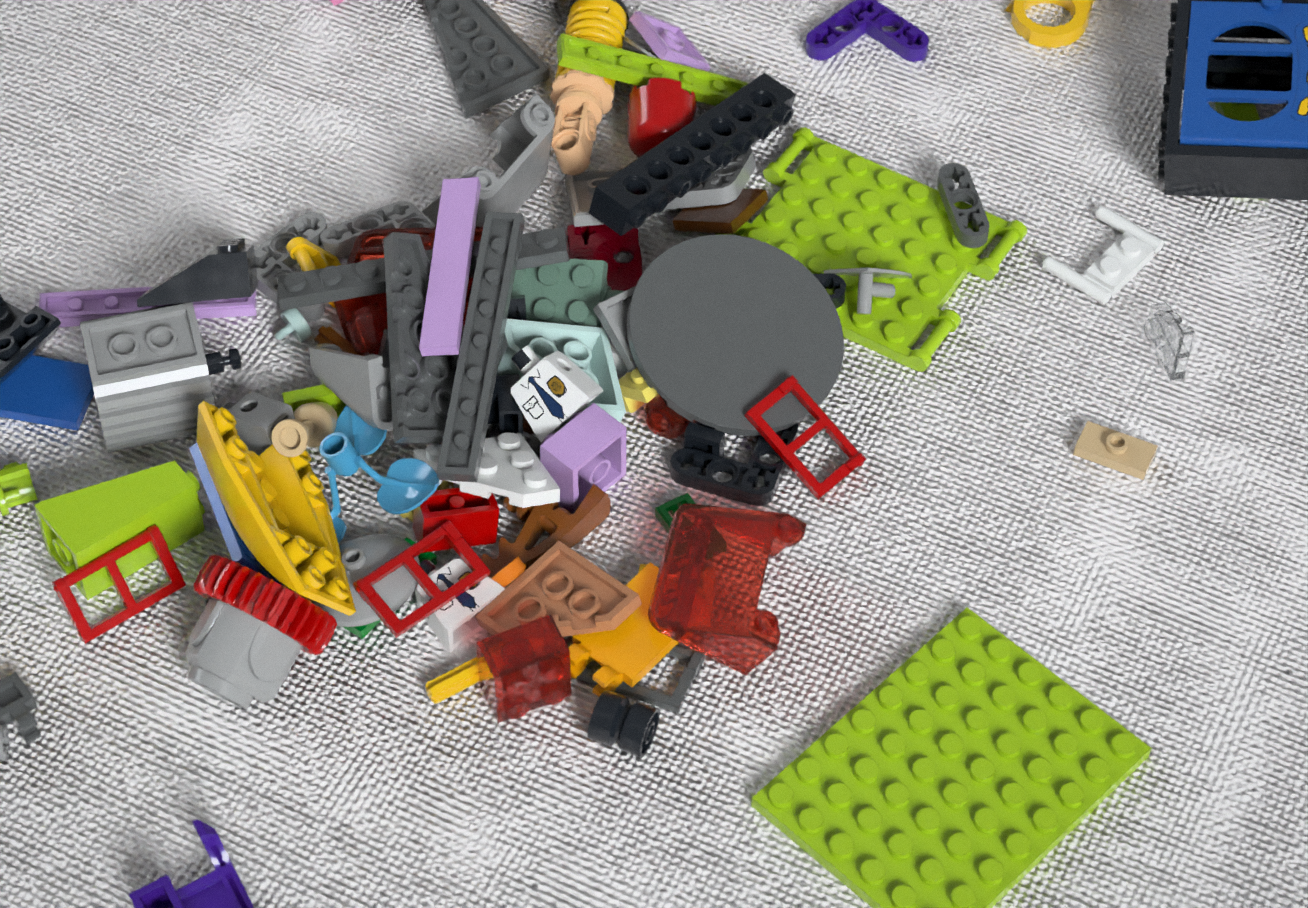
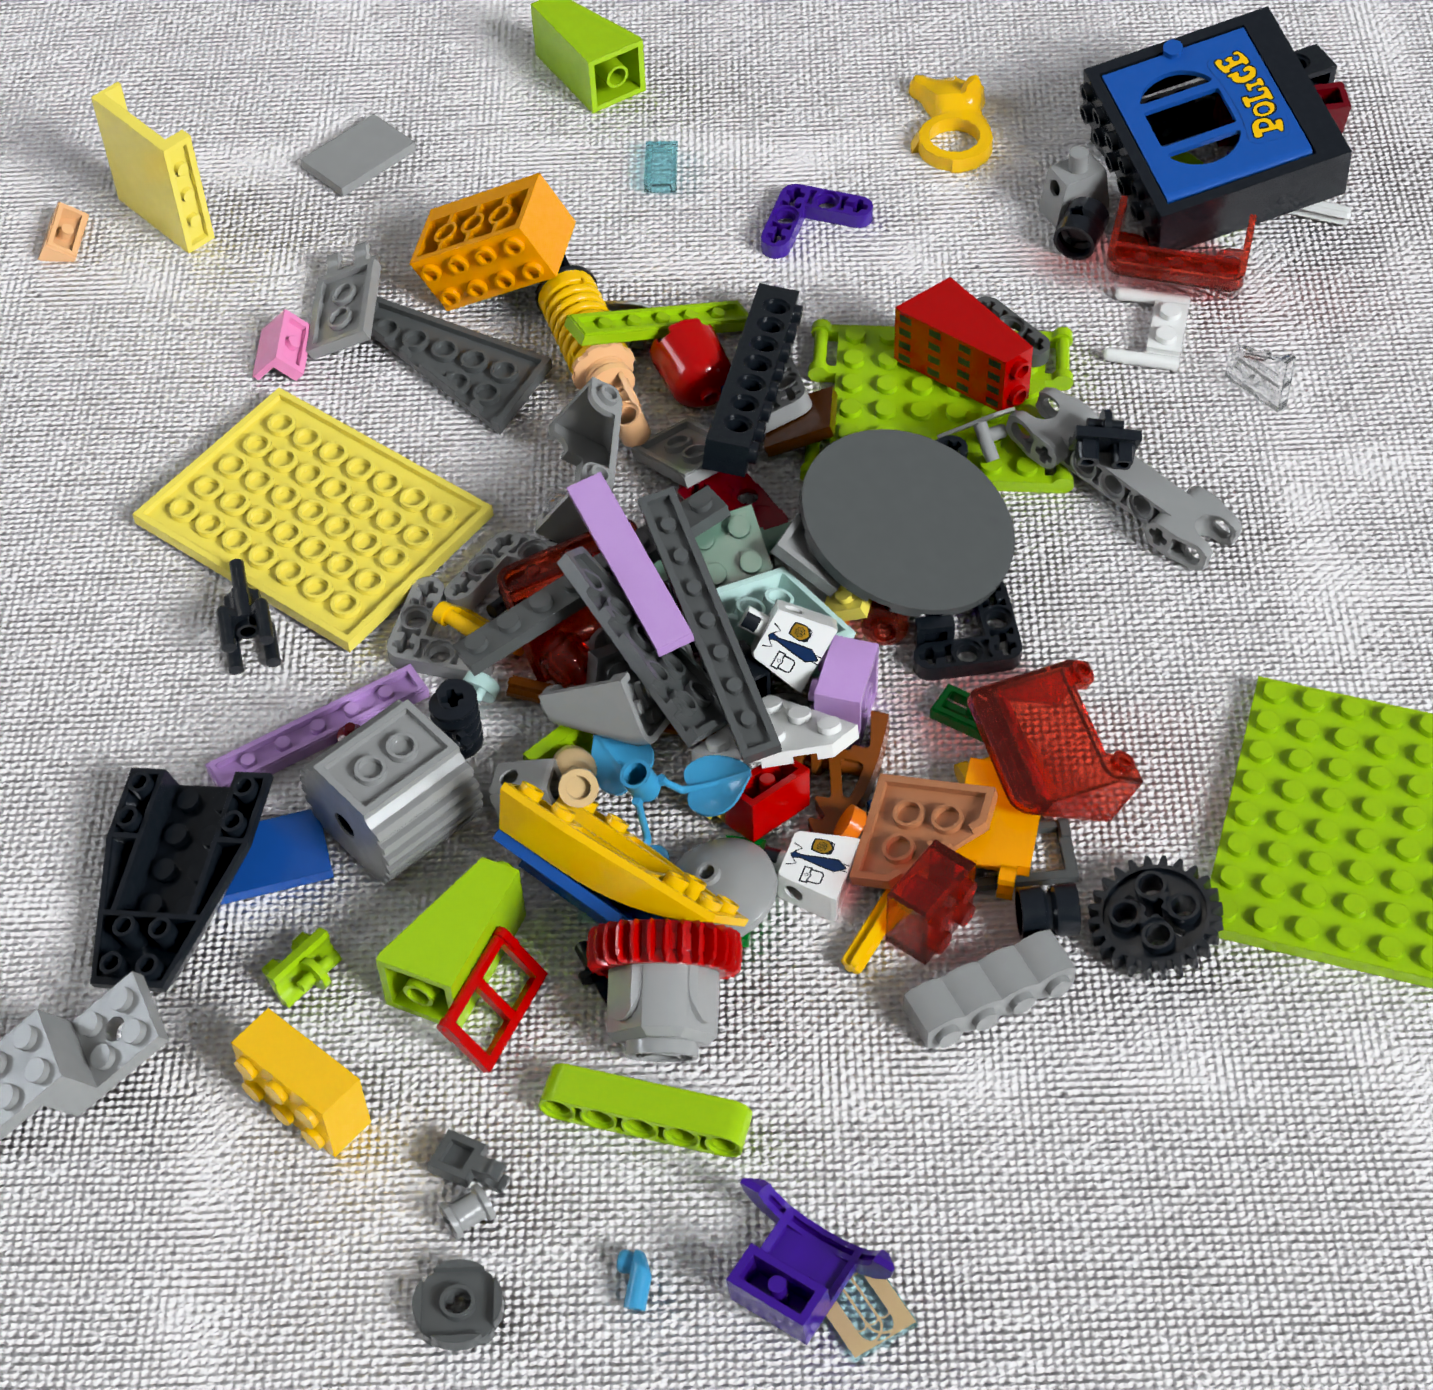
camera: 25 degrees left, 0 degrees up
(84, 853) = (639, 1279): none -> dark azure arm
(146, 189) = (245, 617): none -> black plant
(179, 732) = (646, 1110): none -> lime beam
(218, 275) = (390, 672): black slope -> none
(249, 334) = (456, 708): none -> black piece
(265, 126) = (316, 514): none -> light yellow plate
(438, 599) = (759, 851): red window -> none
(526, 765) = (993, 987): none -> light grey brick
(668, 41) = (645, 290): lavender tile -> none
(749, 759) = (1155, 918): none -> black gear
(787, 452) = (1015, 607): red window -> none
(898, 198) = (963, 346): none -> red slope
(961, 330) = (1107, 437): none -> black hips
(990, 426) = (1170, 514): none -> light grey piece
(1101, 138) = (1081, 228): none -> black wheel
(1115, 450) = (1279, 489): tan plate -> none
(1120, 99) = (1073, 178): none -> light grey torso
(1127, 184) = (1138, 264): none -> clear red windscreen

